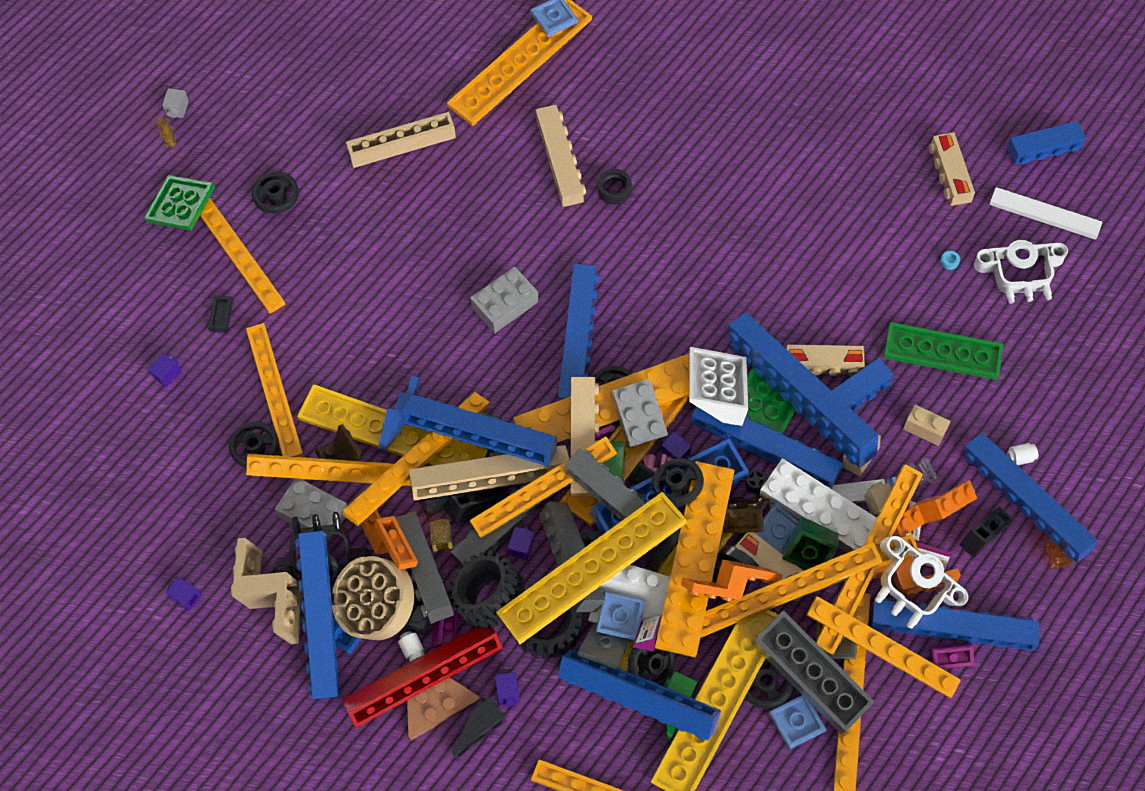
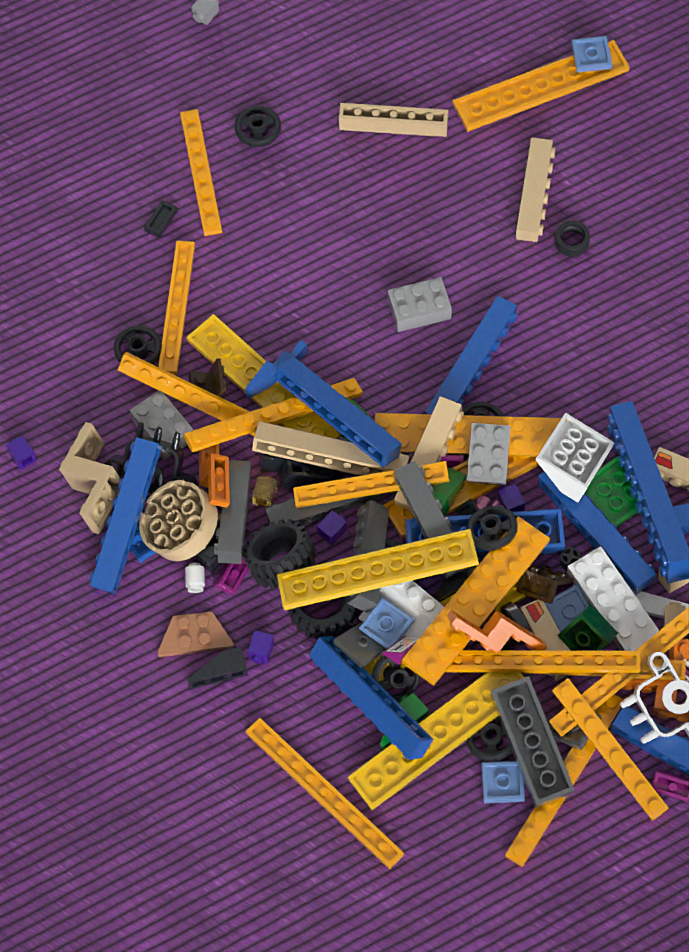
camera: 25 degrees right, 0 degrees up
(165, 369) = (90, 250): dark purple brick -> none
(166, 132) = (184, 34): clear yellow pin -> none
(179, 202) = (168, 103): green plate -> none
(421, 674) = (192, 603): red brick -> none

